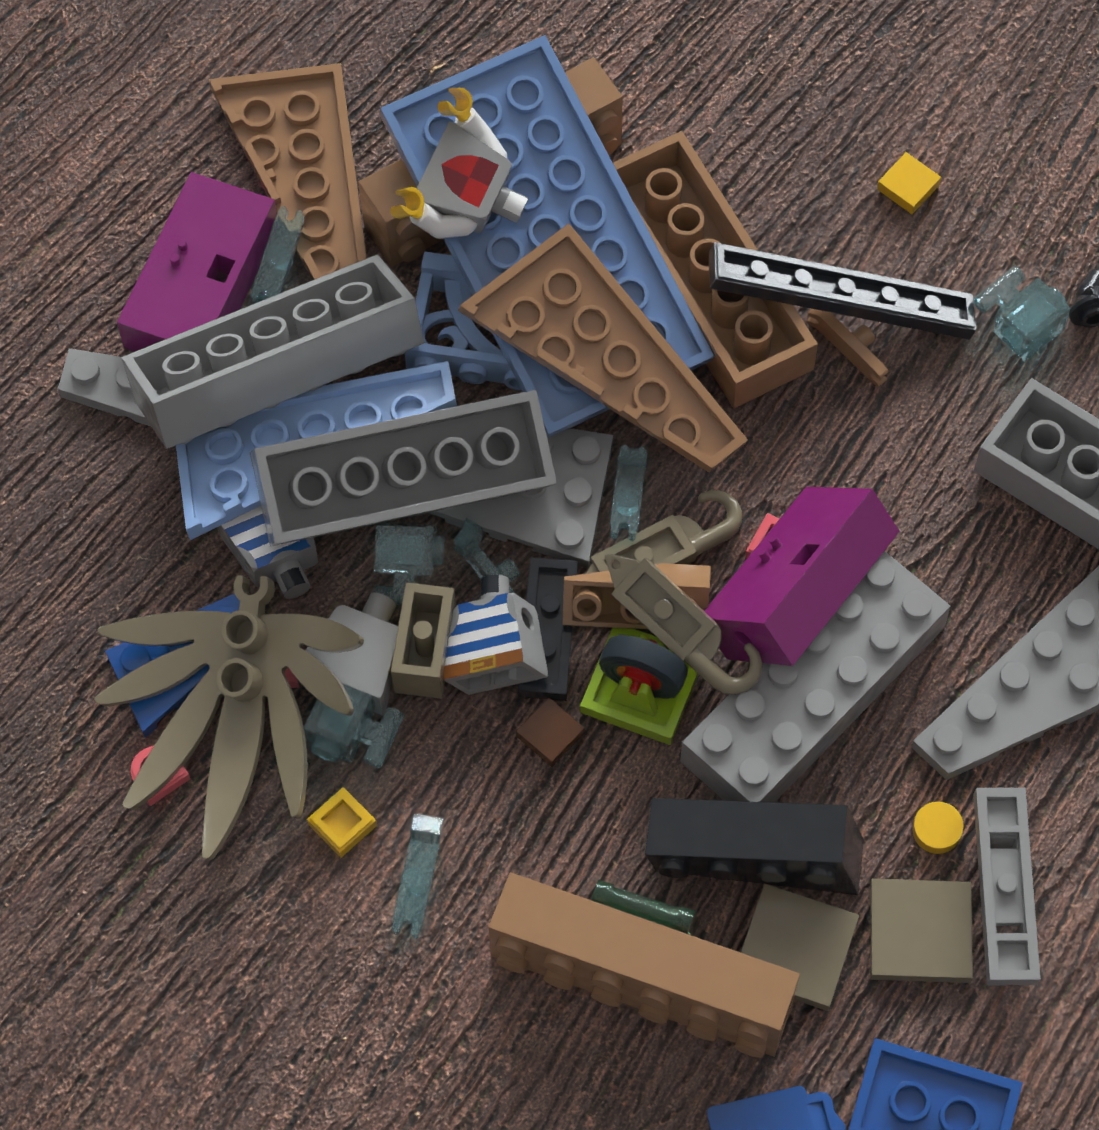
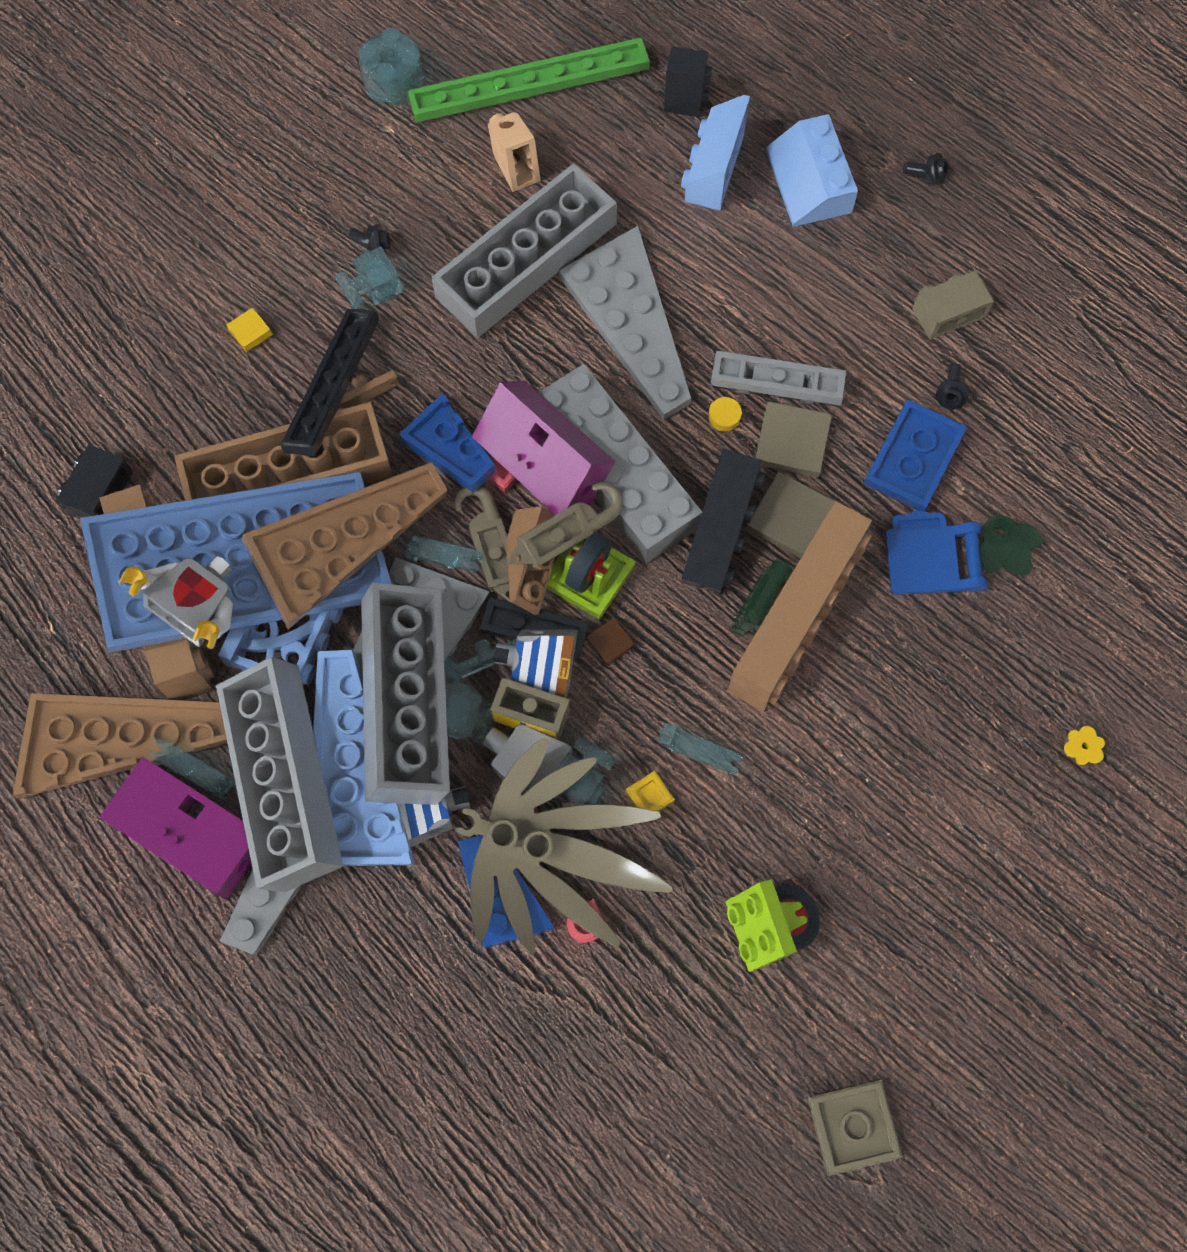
camera: 80 degrees left, 5 degrees up
(191, 1013) = (772, 922): none -> lime plate
(636, 57) = (94, 476): none -> black brick
(797, 454) = (445, 441): none -> blue wing

